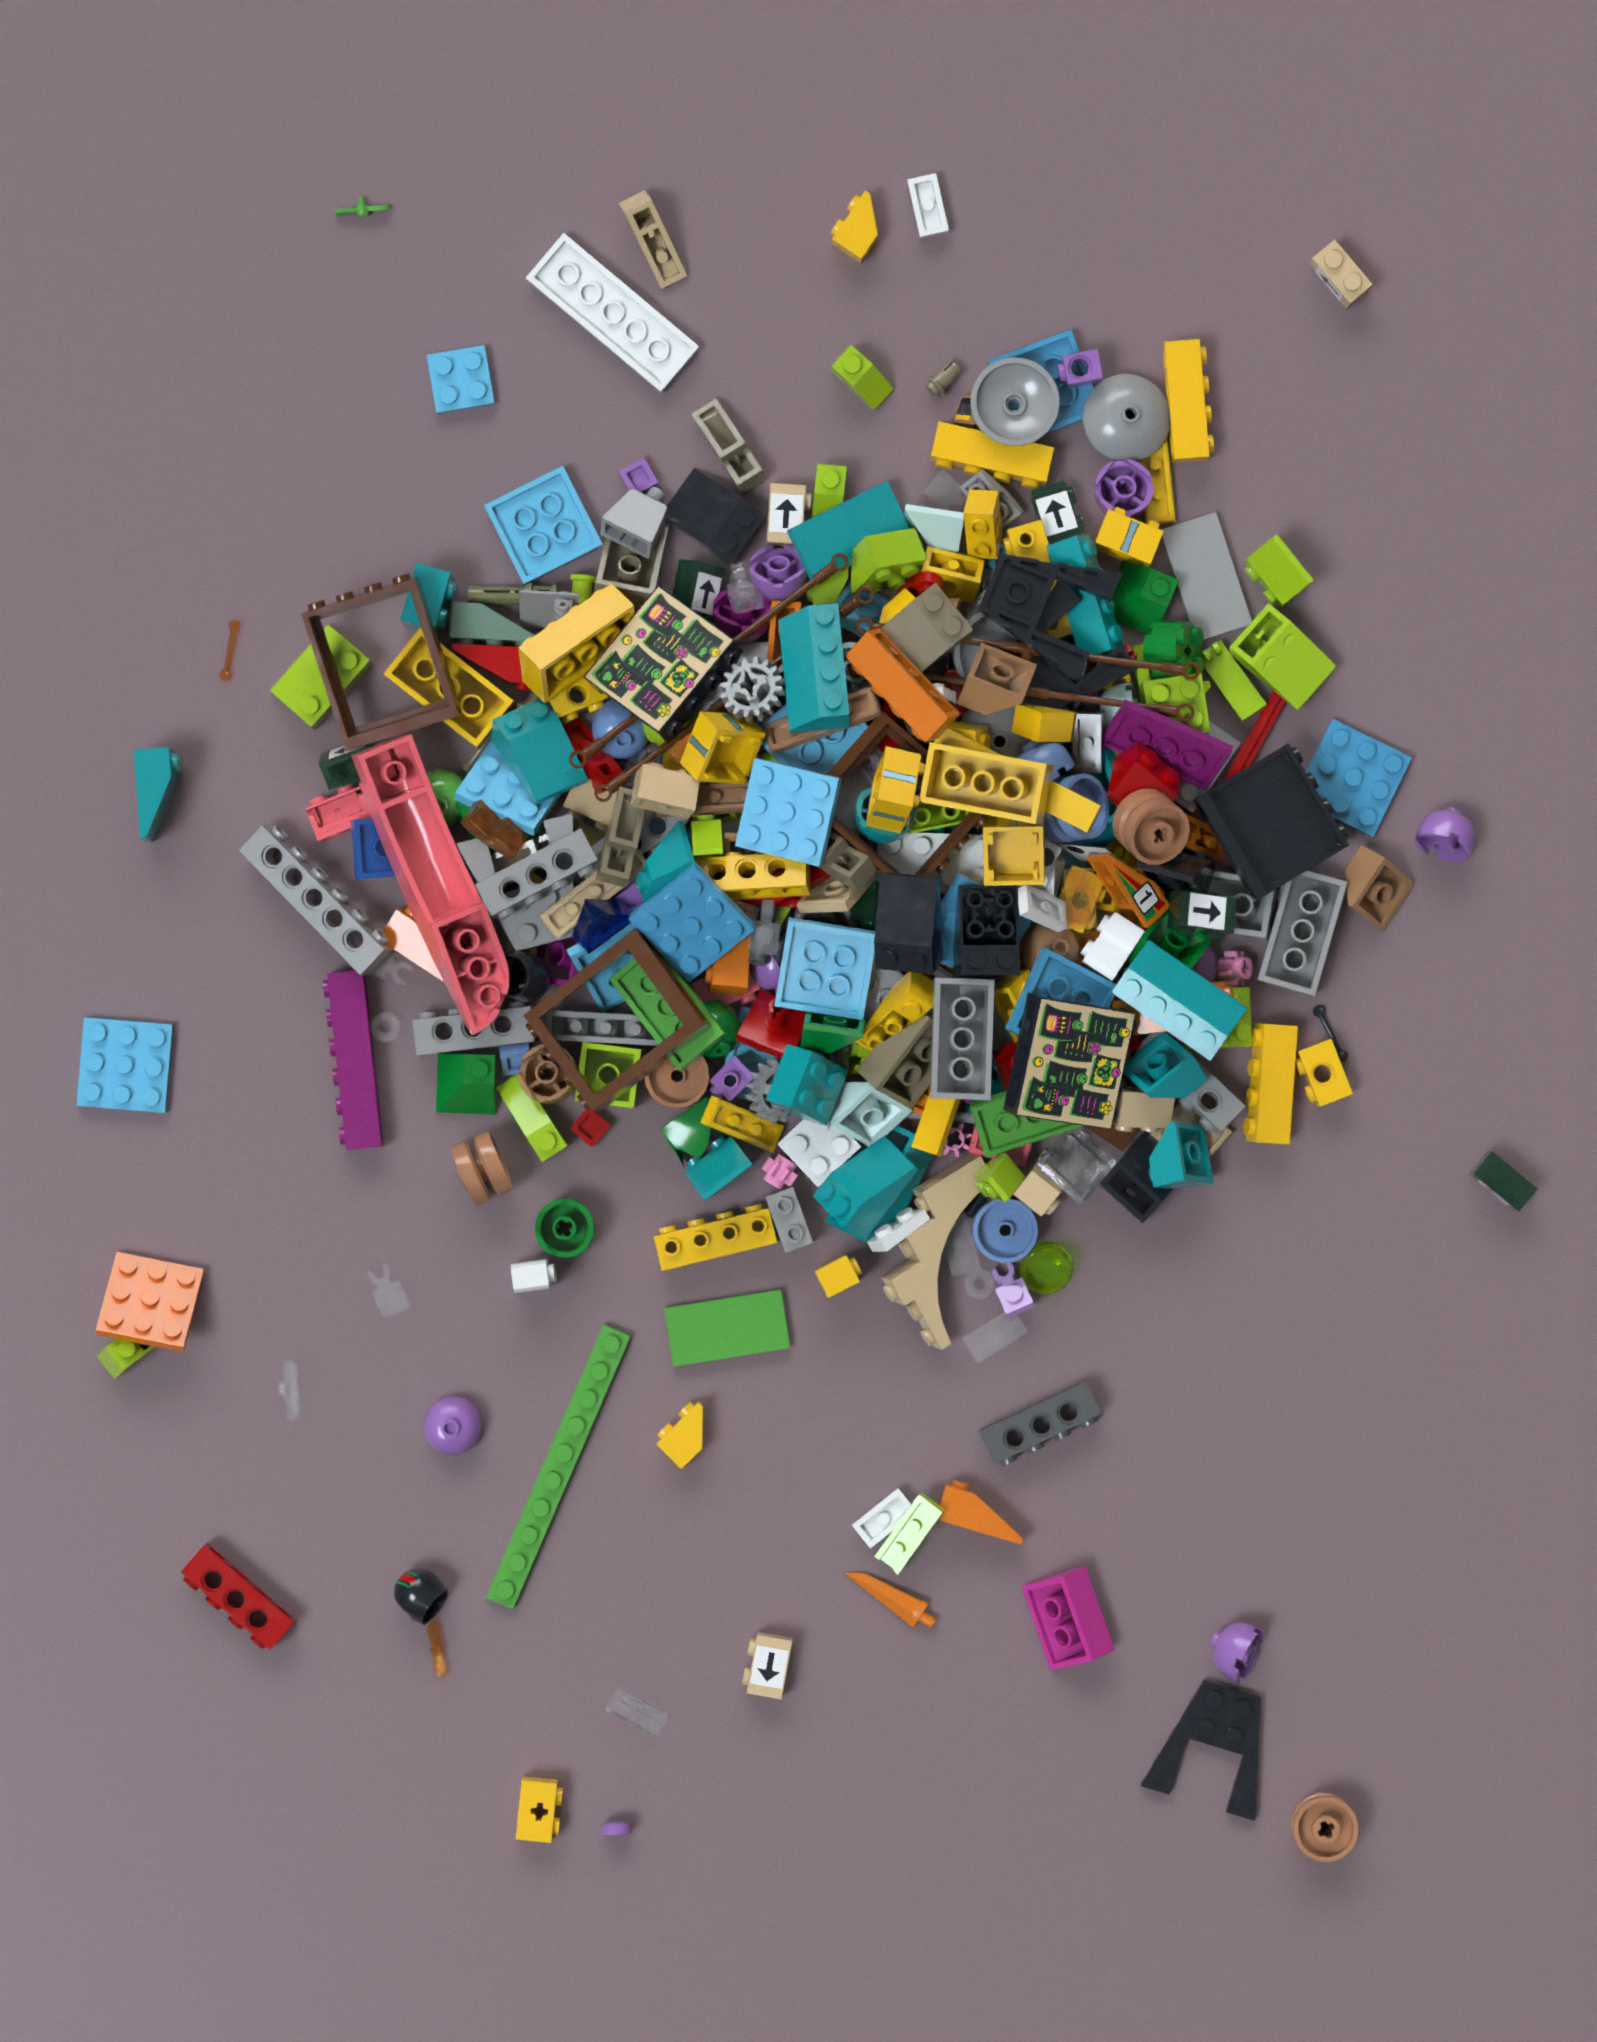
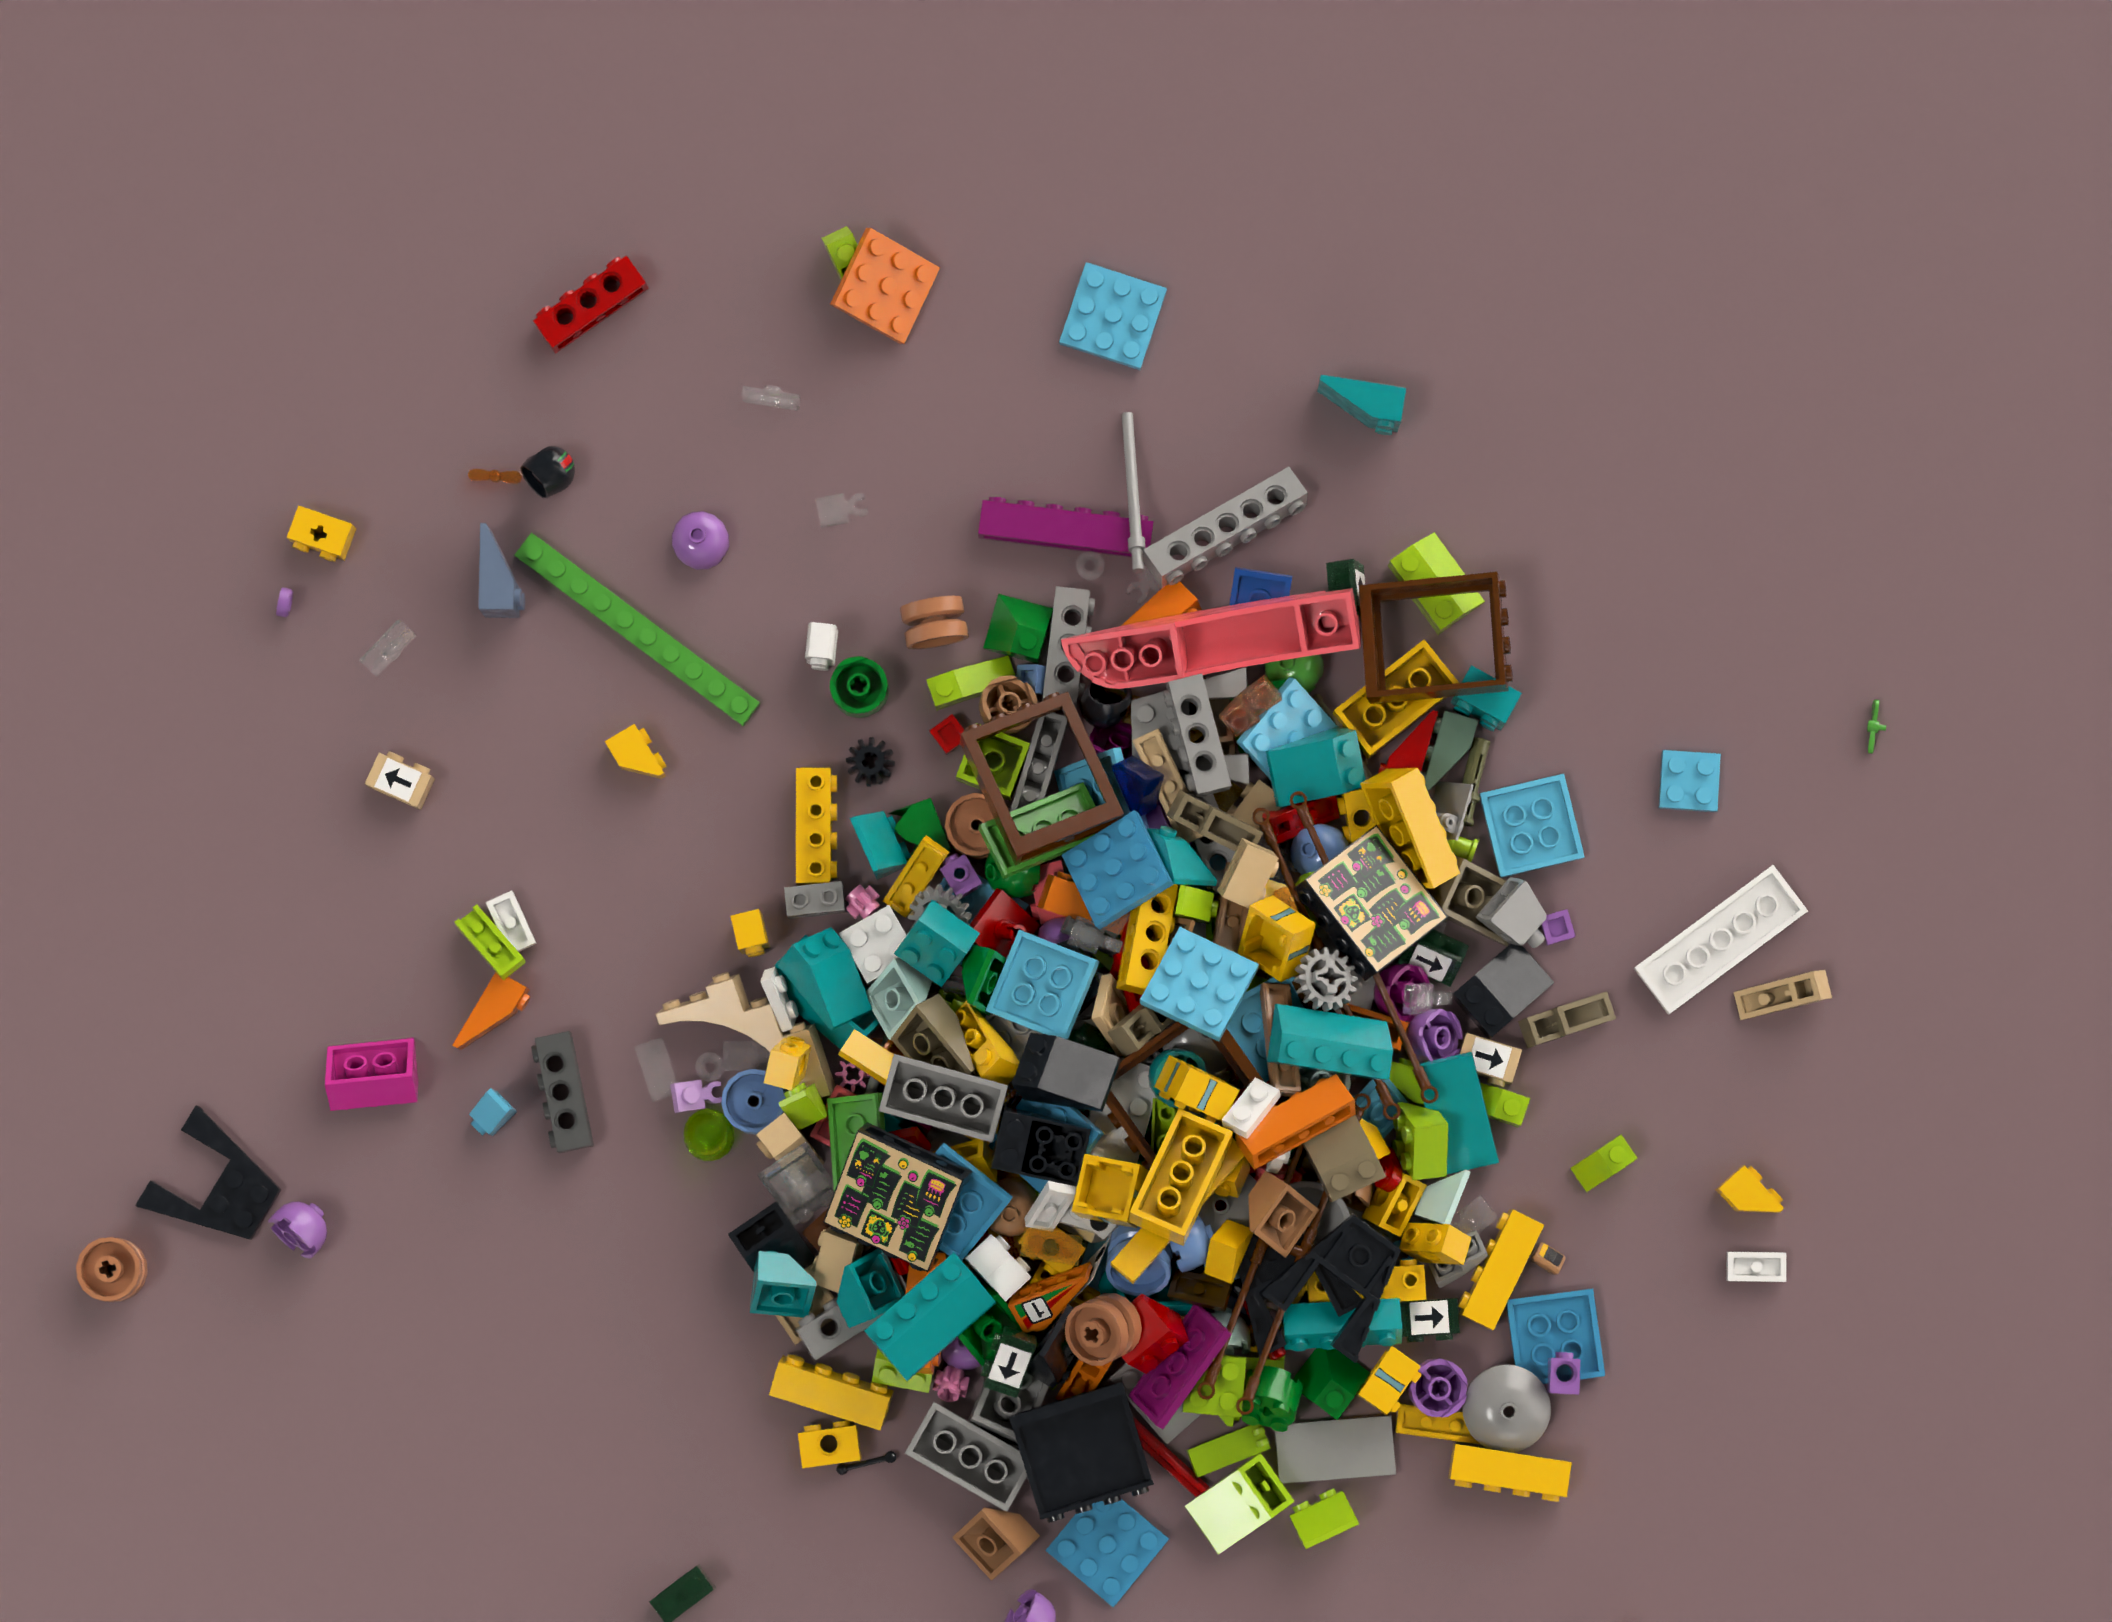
camera: 110 degrees right, 5 degrees down
(225, 674) = (1460, 495): clear orange hinge -> none
(334, 815) = (1301, 560): coral hinge -> none
(353, 984) = (1136, 541): none -> light grey bar
(549, 1616) = (497, 586): none -> sand blue slope
(637, 1188) = (860, 759): none -> black gear
(727, 1328) = (727, 818): bright green tile -> none
(900, 730) = (1251, 1108): none -> white plate
(901, 1603) = (426, 920): orange bar -> none
(942, 379) = (1585, 1241): dark tan pin -> none
(962, 1203) = (787, 1063): none -> yellow brick
(1018, 382) = (1566, 1306): light grey dish -> none
(1078, 1488) = (491, 1113): none -> medium azure slope

